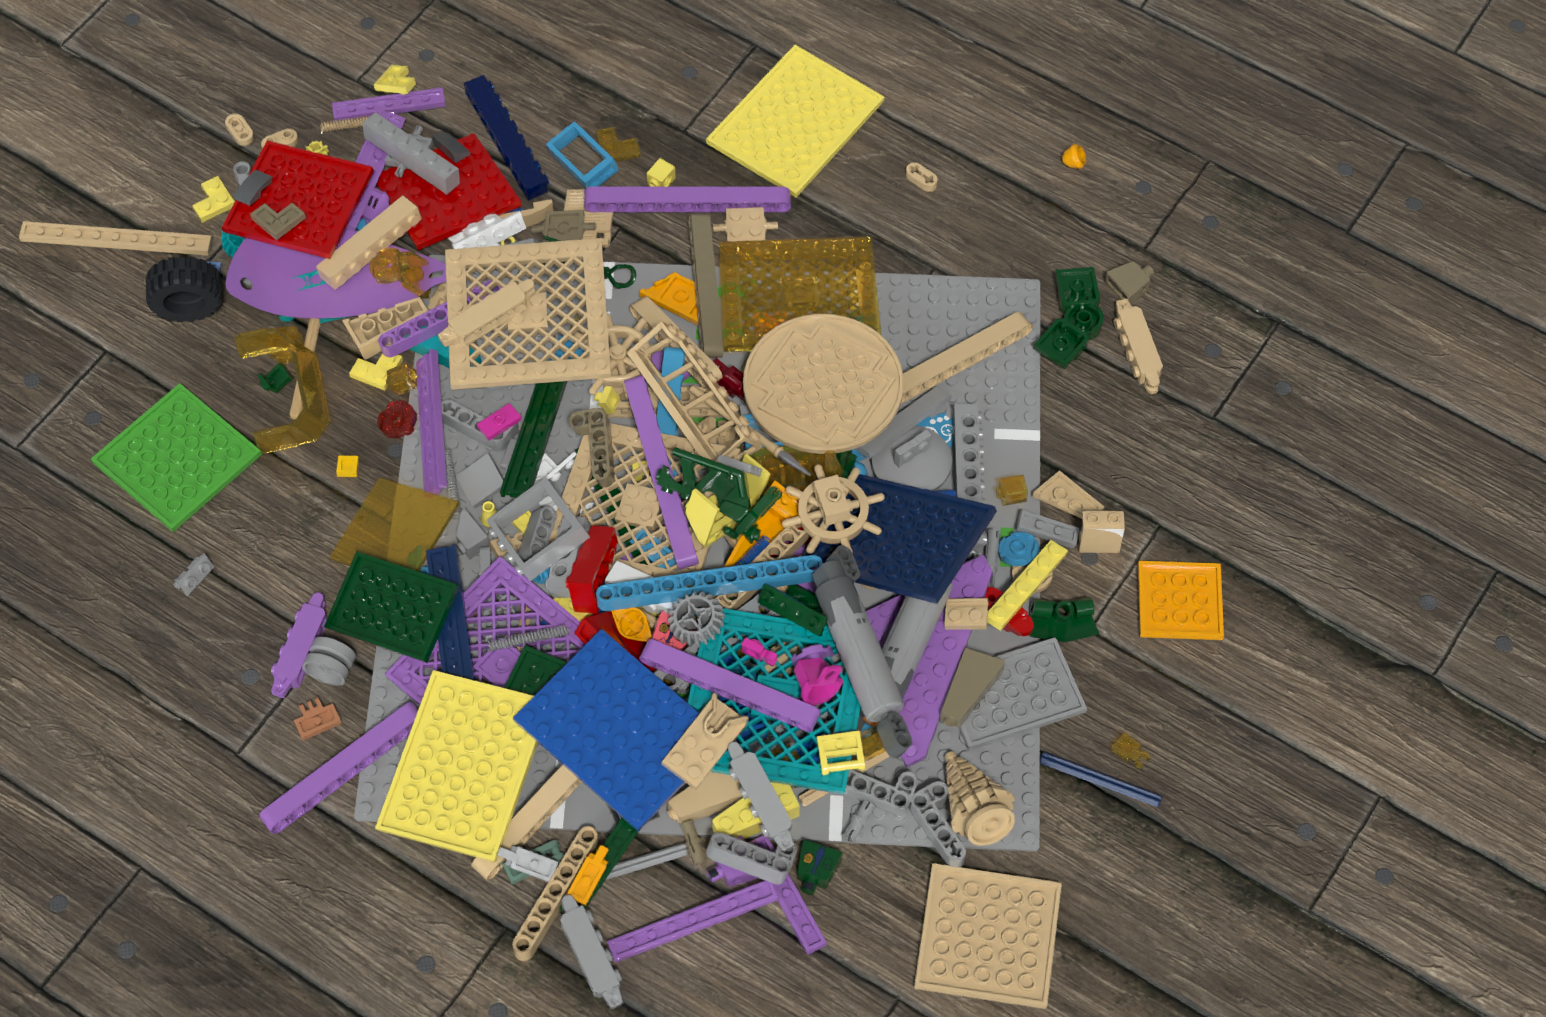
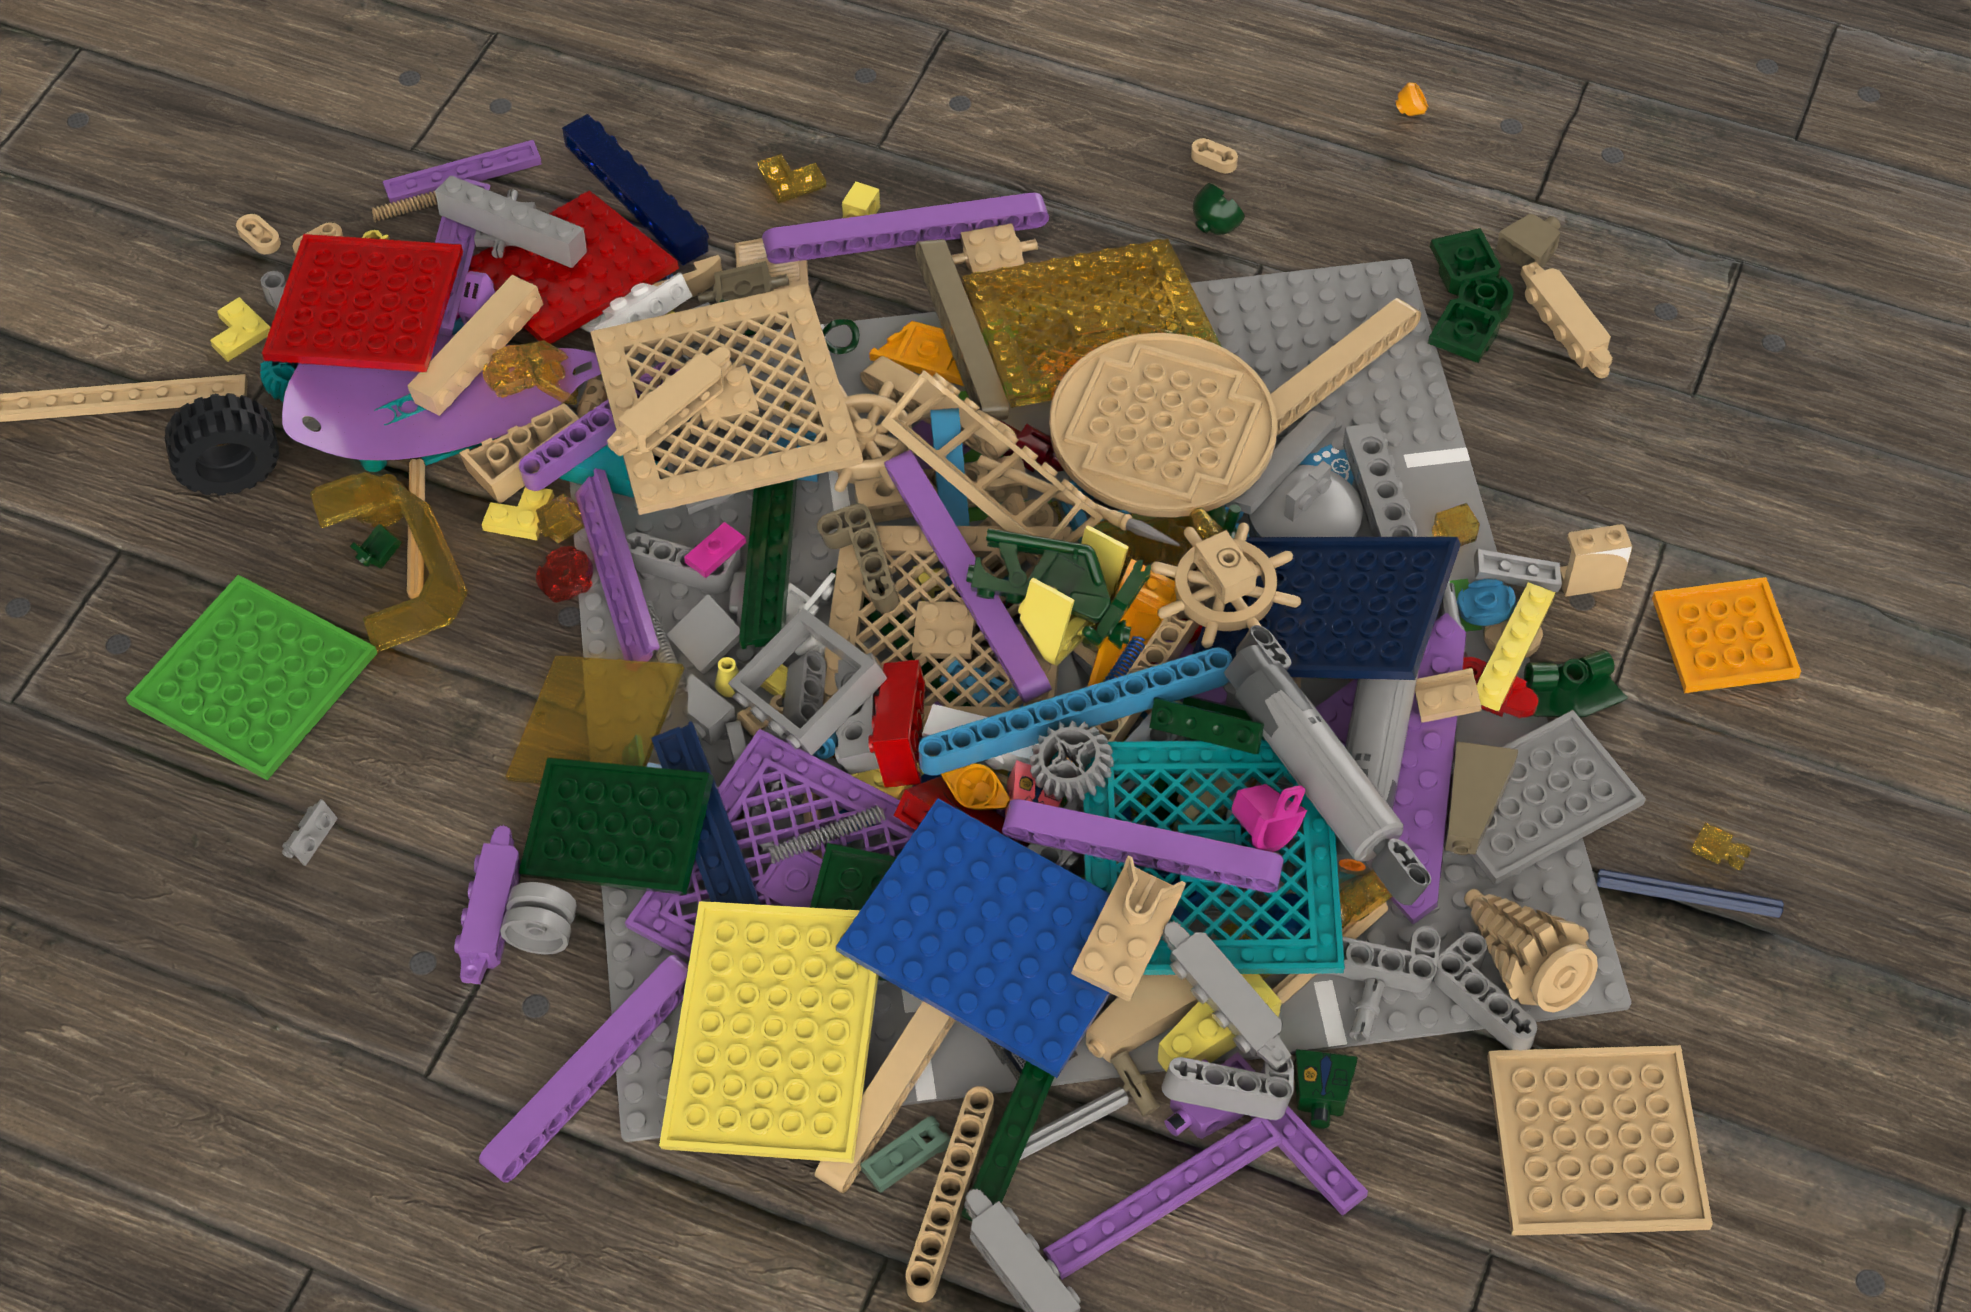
camera: 10 degrees left, 5 degrees down
(252, 186) = (296, 293): dark grey slope -> none
(279, 223) = (344, 334): dark tan plate -> none
(316, 719) = (535, 1005): nougat hinge -> none
(347, 466) = (505, 648): yellow tile -> none
(395, 80) = (466, 139): light yellow plate -> none
(450, 146) = (561, 208): dark grey slope -> none
(529, 862) = (902, 1153): hinge -> none
(588, 876) = (997, 1157): light orange hinge -> none
(599, 173) = (783, 206): dark azure window -> none
(608, 399) = (863, 492): light yellow tile -> none
(739, 465) = (1097, 542): light grey tile -> none
(756, 650) = (1169, 791): dark pink plate -> none
(795, 120) = (1025, 111): light yellow plate -> none
(811, 652) = (1251, 777): medium lavender plate -> none
(837, 746) = (1323, 903): light yellow plate -> none
(908, 222) = (1215, 212): none -> dark green cylinder
(1066, 495) = (1530, 524): tan wing -> none

